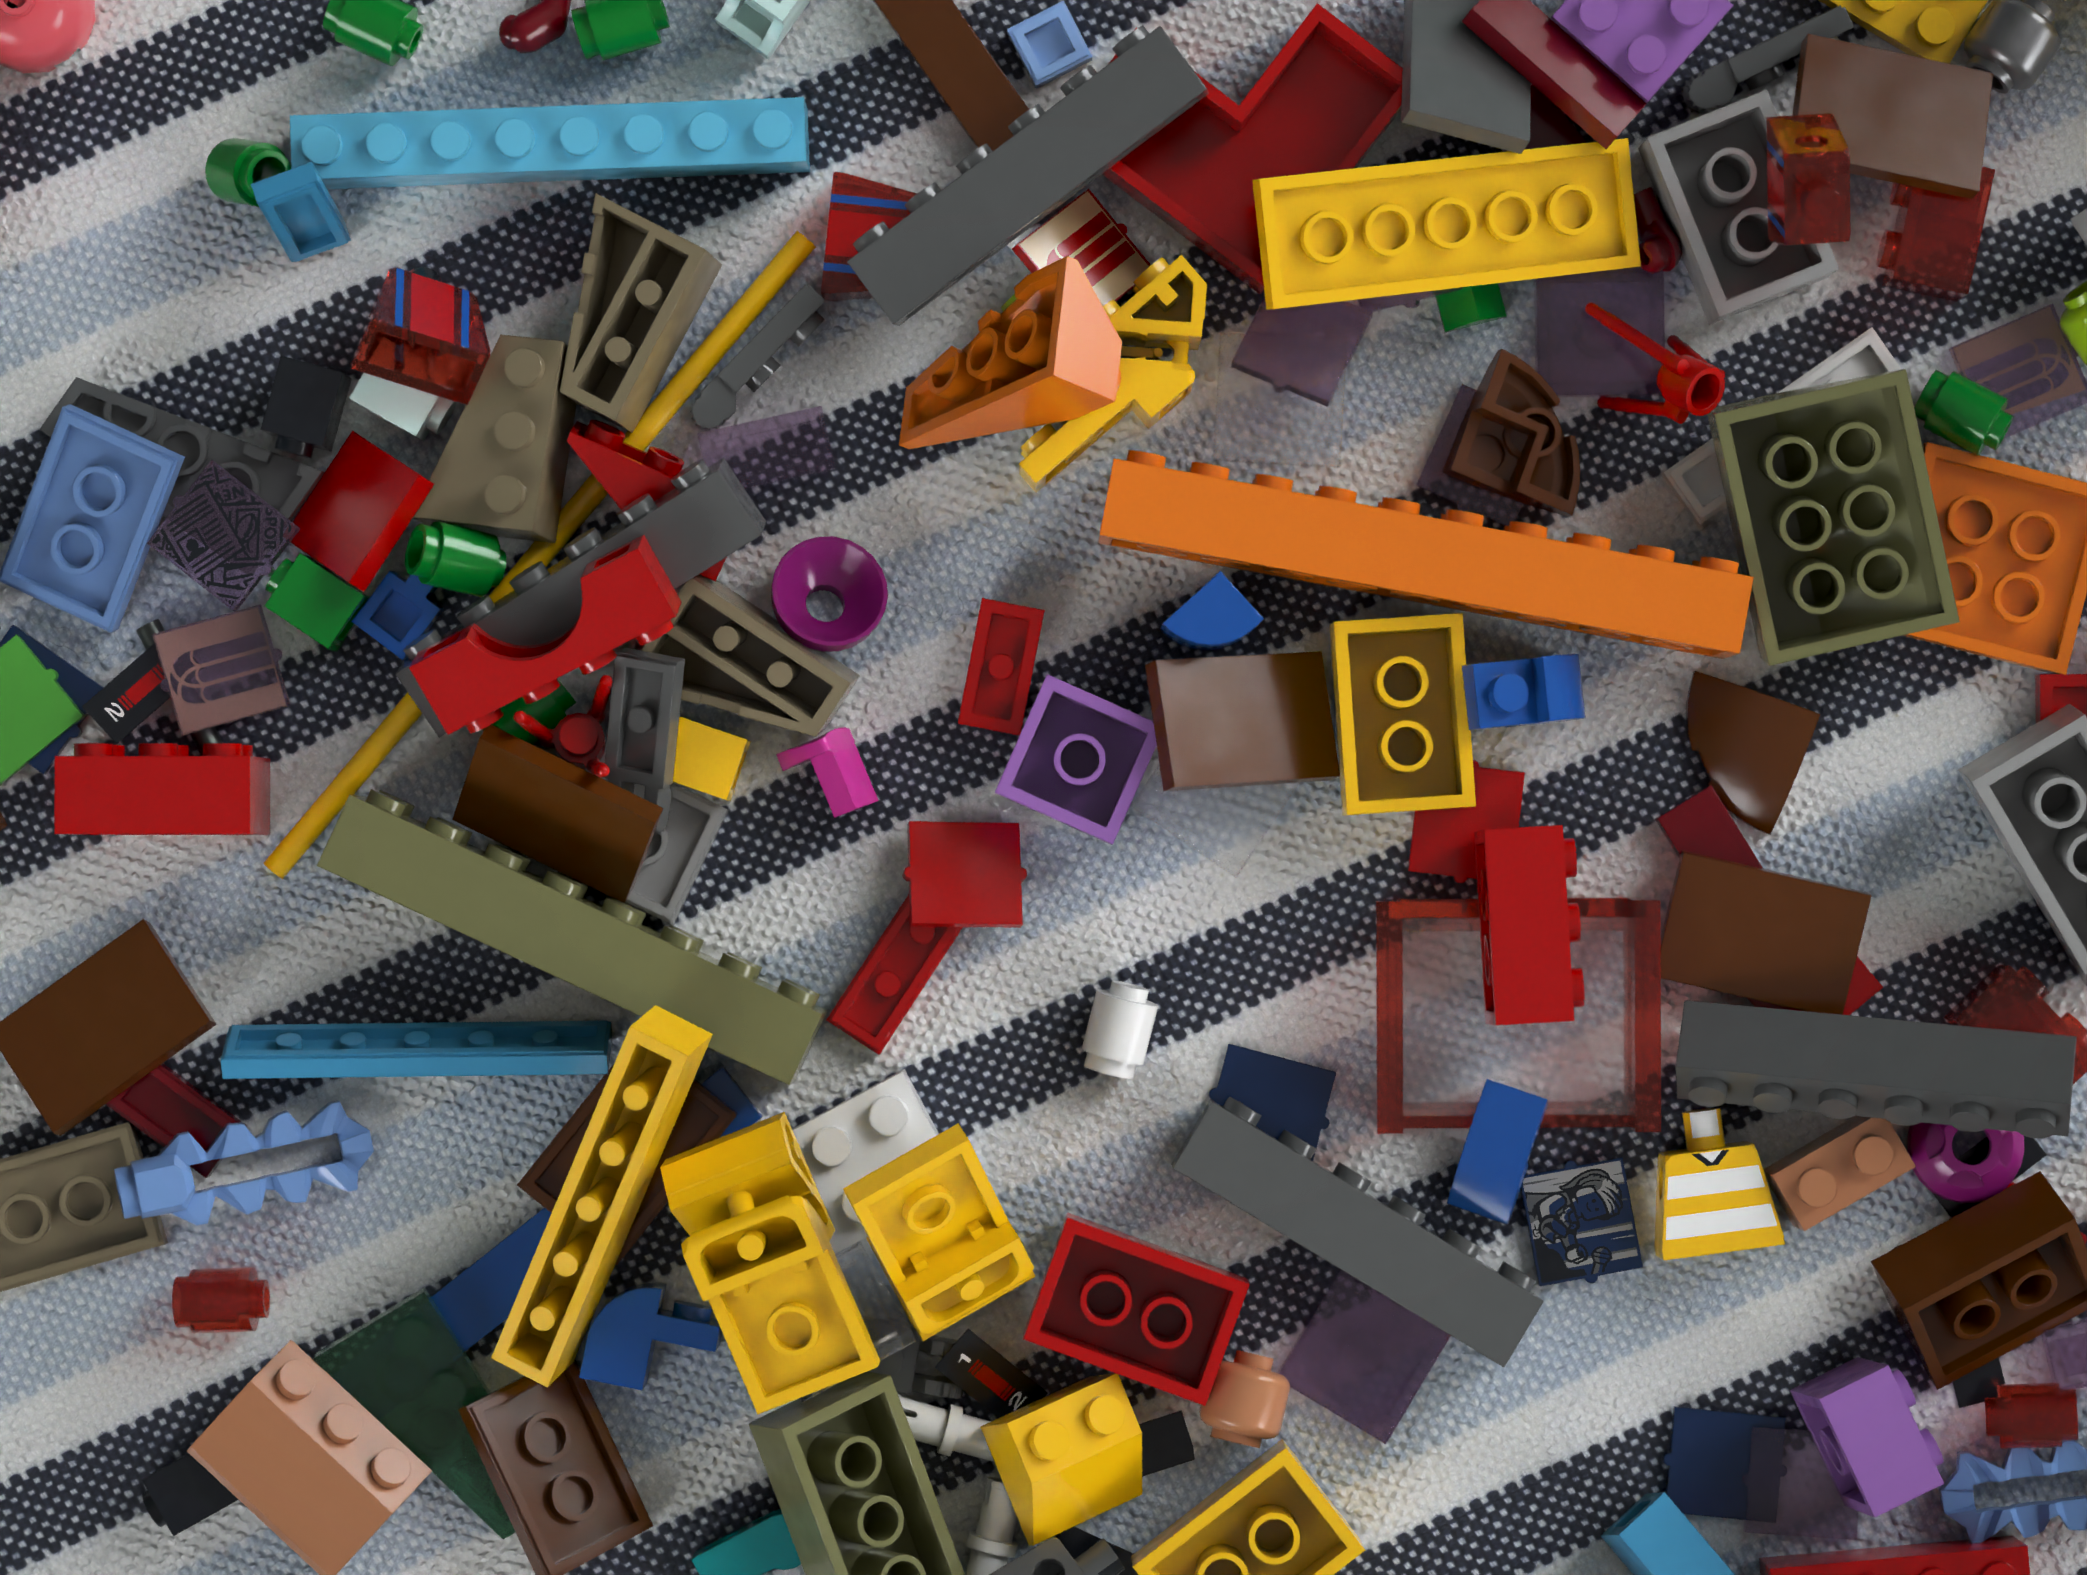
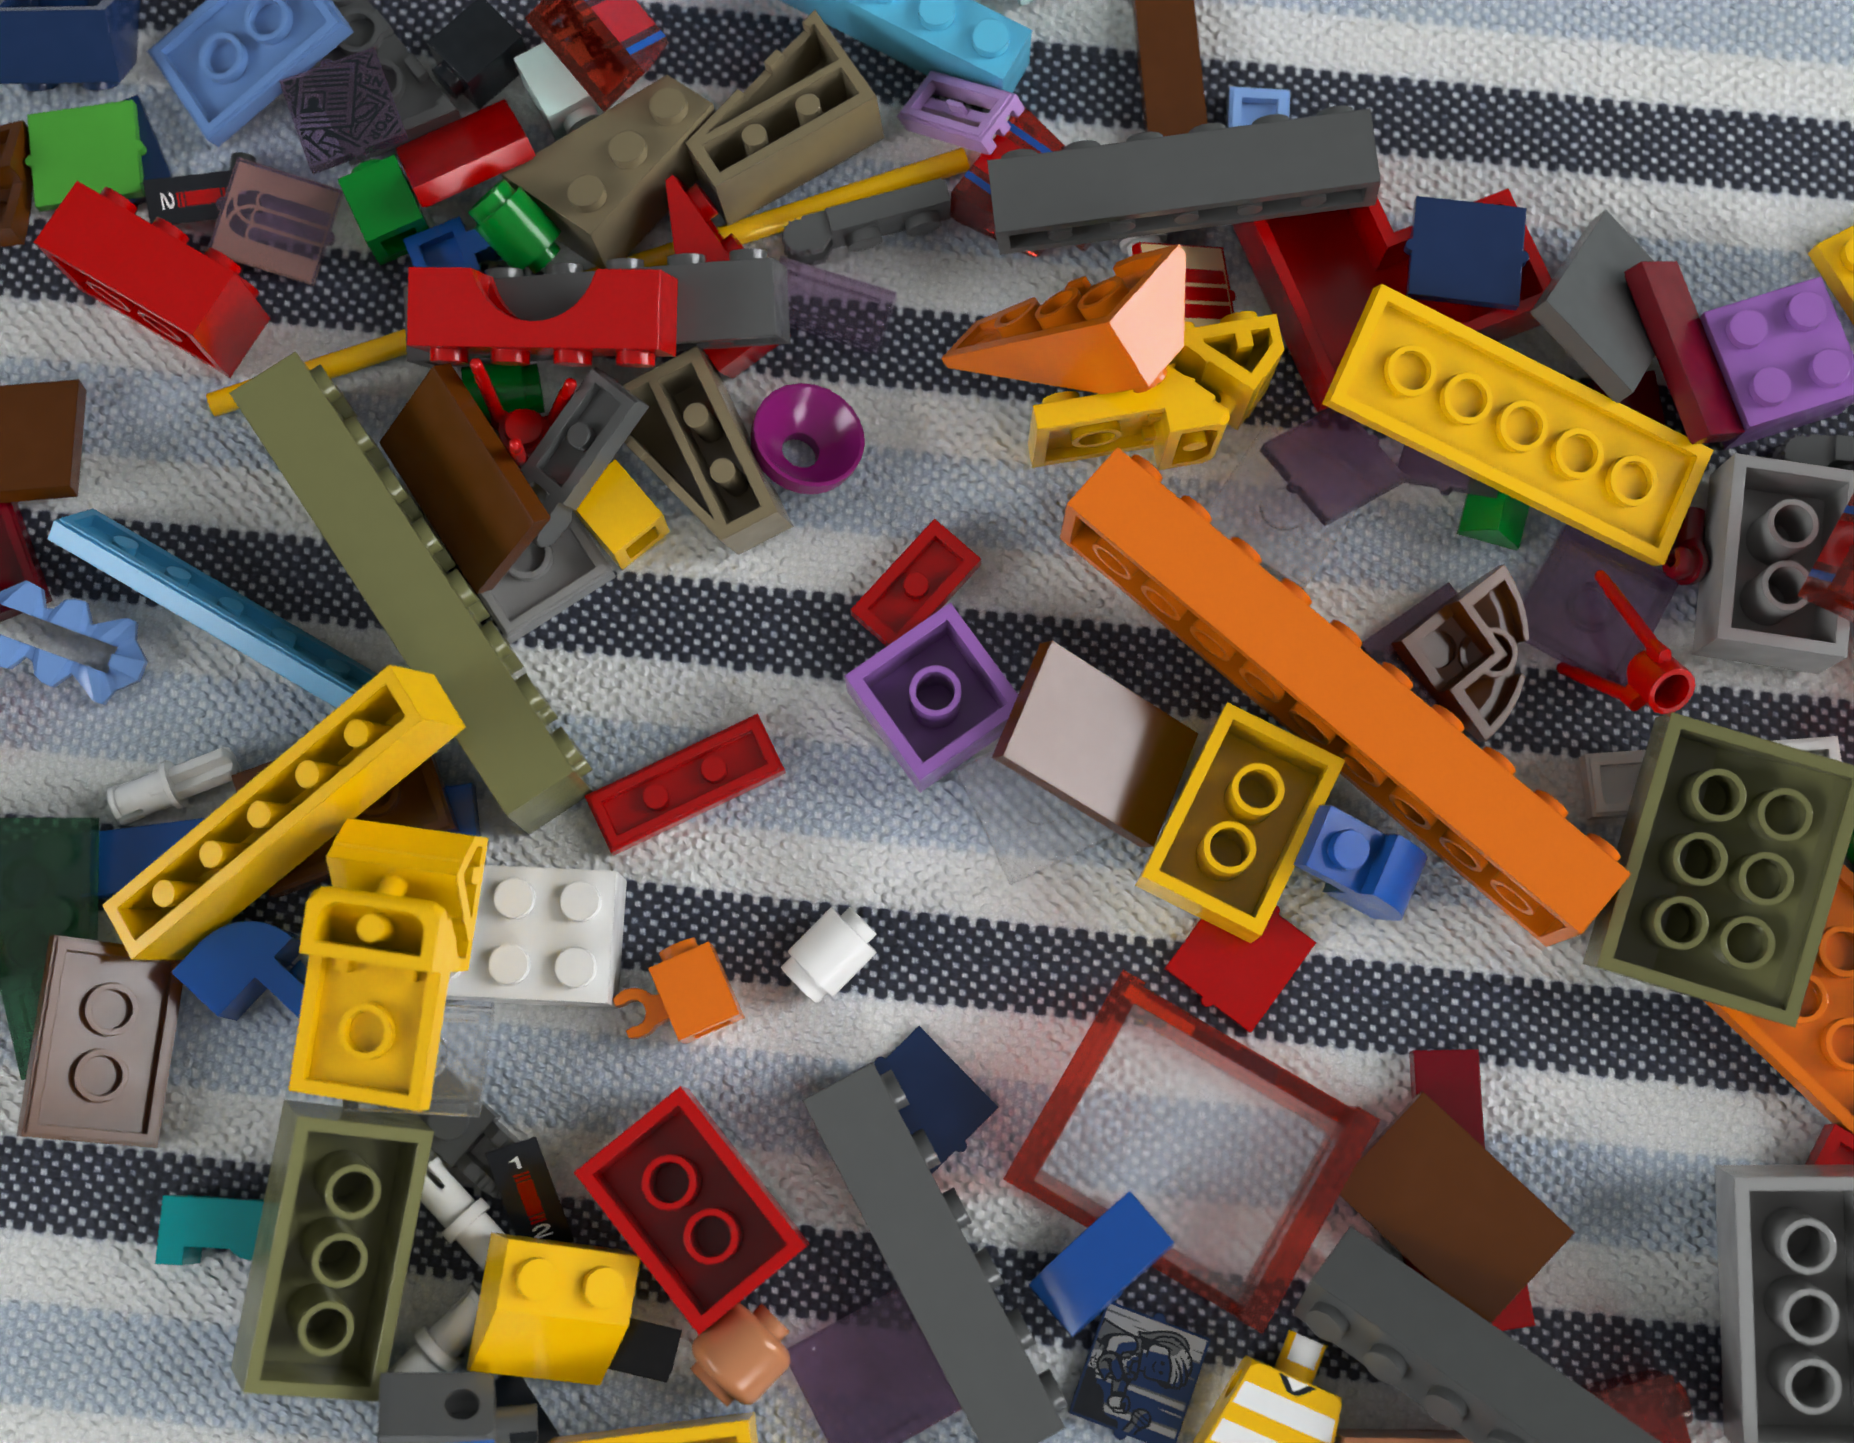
camera: 30 degrees right, 10 degrees down
(466, 1221) = (171, 785): none -> white axle
(819, 207) = (954, 122): none -> lavender tile
(837, 769) = (725, 589): dark pink tile -> none
(939, 1232) = (553, 1023): yellow piece -> none
(964, 874) = (778, 741): red piece -> none
(1022, 1132) = (691, 994): none -> orange brick
(1212, 617) = (1122, 640): blue brick -> none
(1313, 89) = (1466, 253): none -> dark blue piece
(1527, 925) = (1249, 1068): red brick -> none
(1747, 746) = (1531, 1034): reddish brown brick -> none

